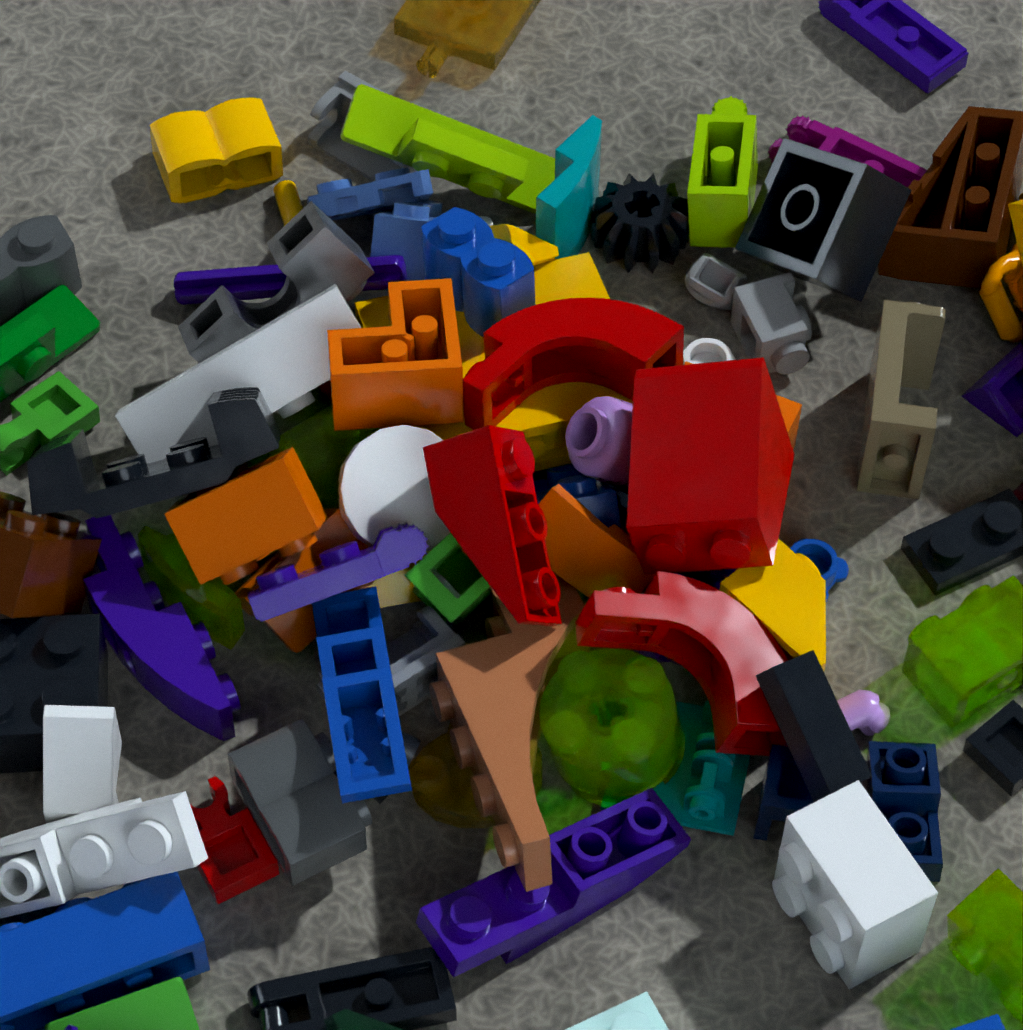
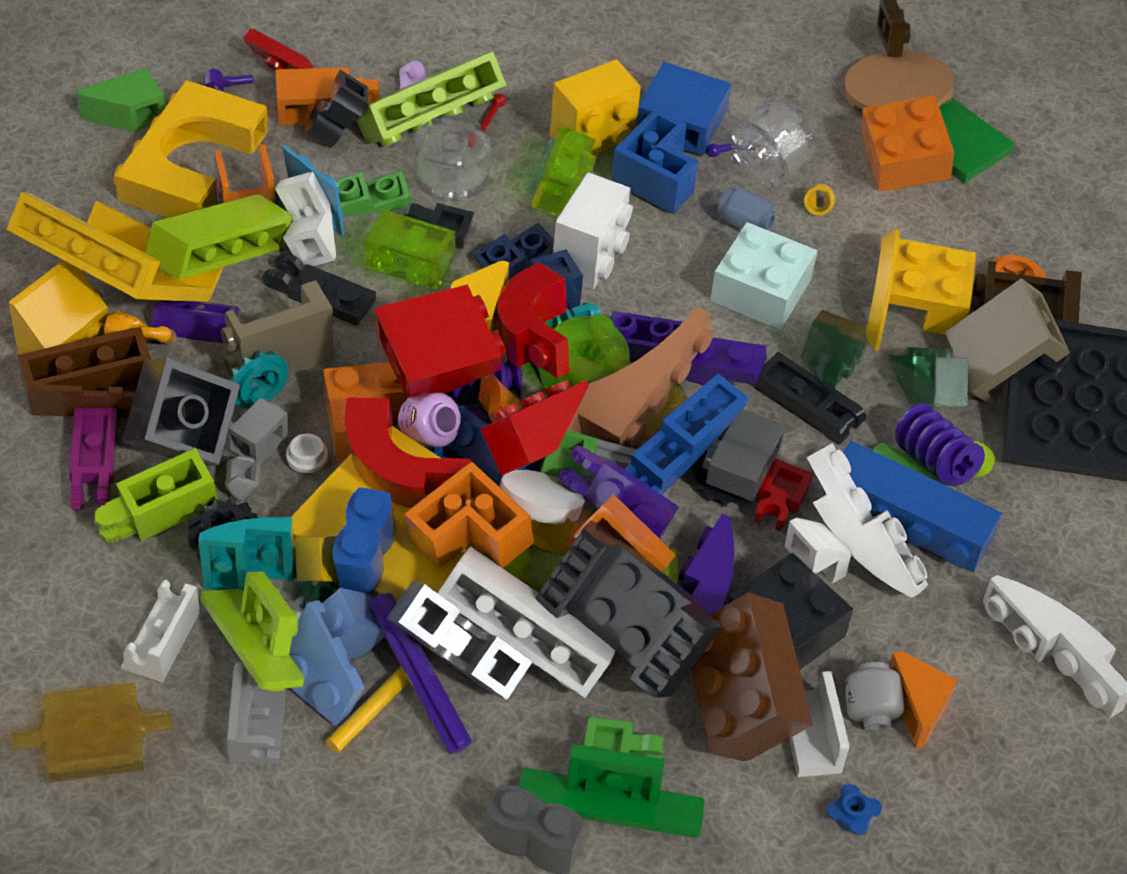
camera: 130 degrees left, 5 degrees down
(216, 149) = (338, 793): yellow brick -> none
(535, 104) = (162, 633): none -> white hinge
(813, 725) = (538, 253): black tile -> none
(850, 354) = (267, 364): none -> teal gear

